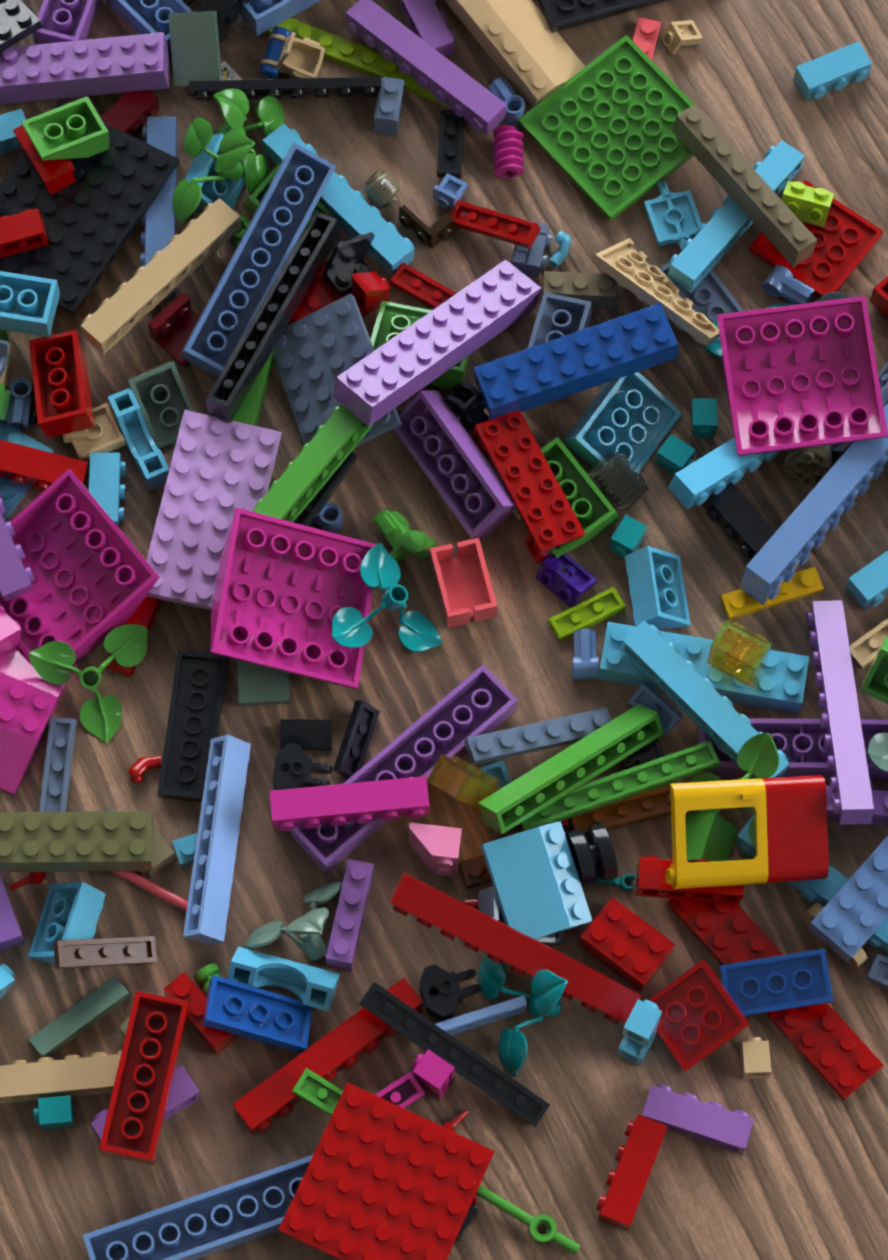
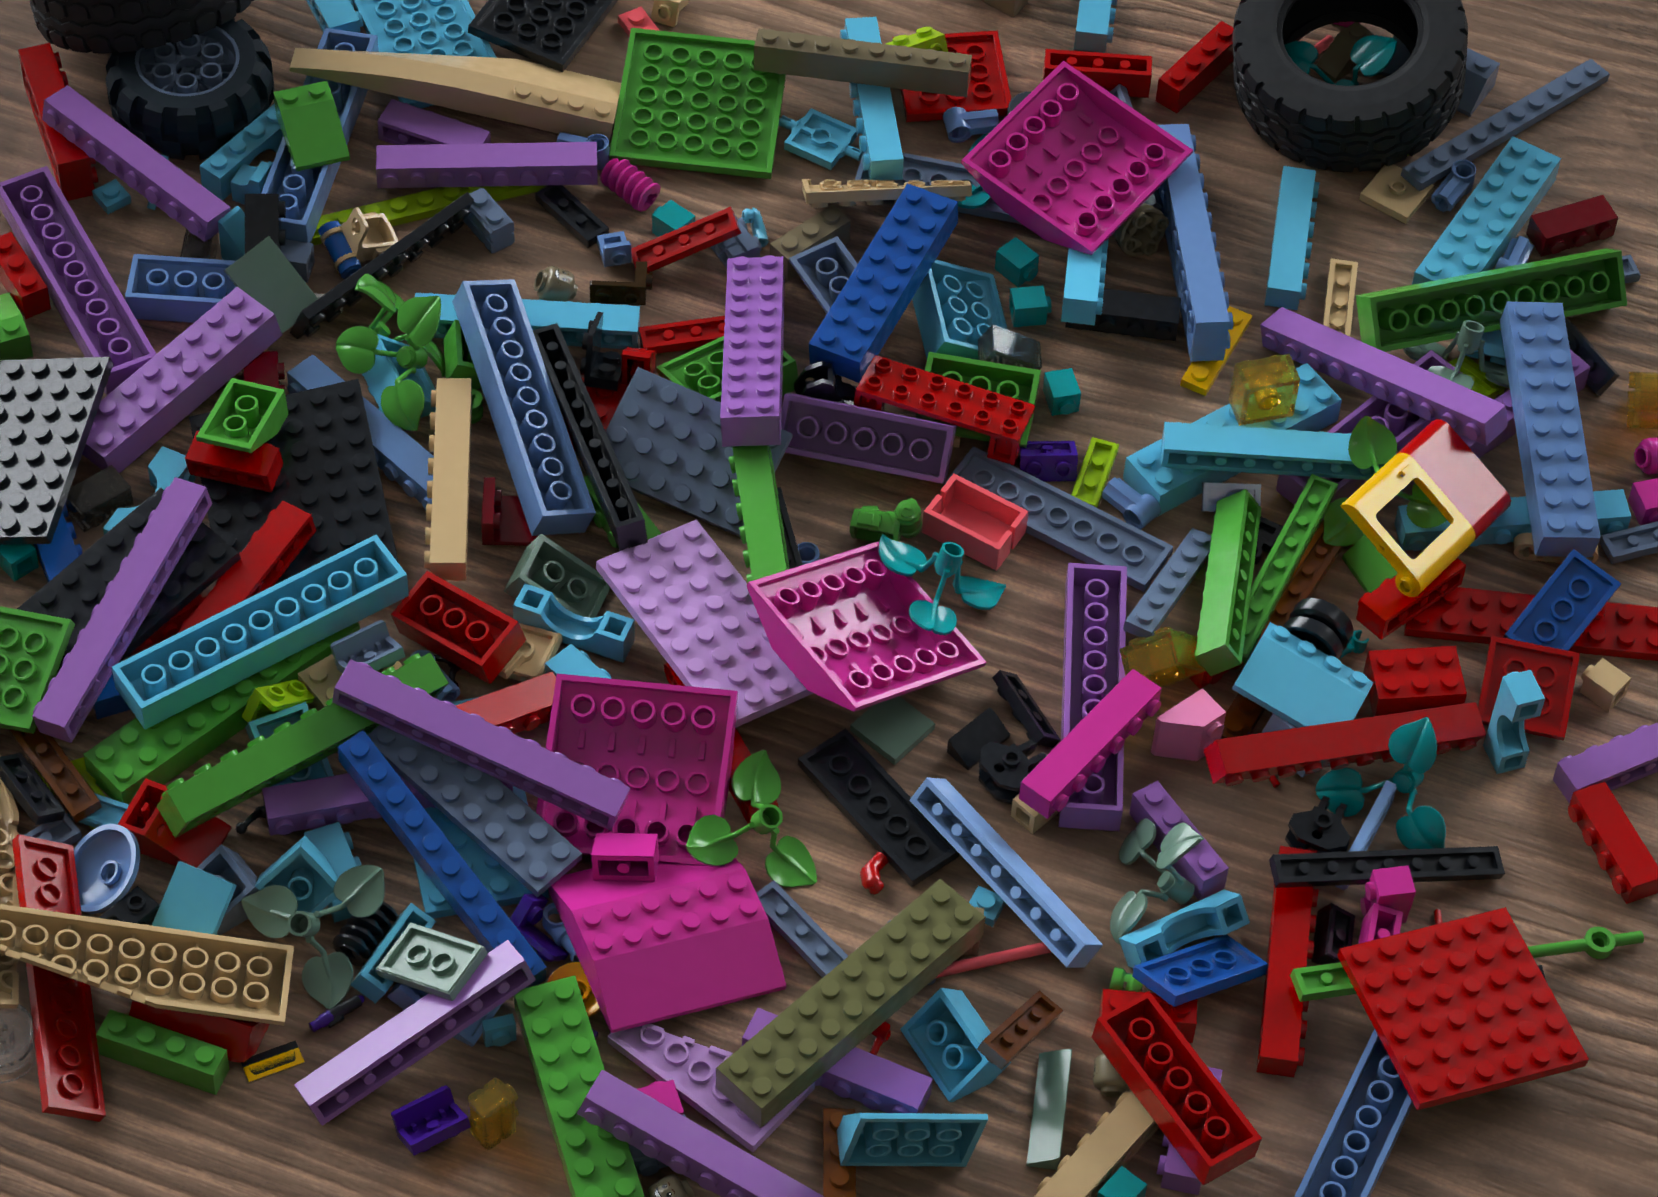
camera: 45 degrees left, 15 degrees down
(241, 38) = (300, 256): none -> sand blue brick
(380, 1067) = (1332, 931): none -> black slope
(506, 200) = (669, 218): none -> teal brick
(527, 628) = (1068, 521): none -> sand blue plate
(657, 588) = (1125, 411): medium azure slope -> none

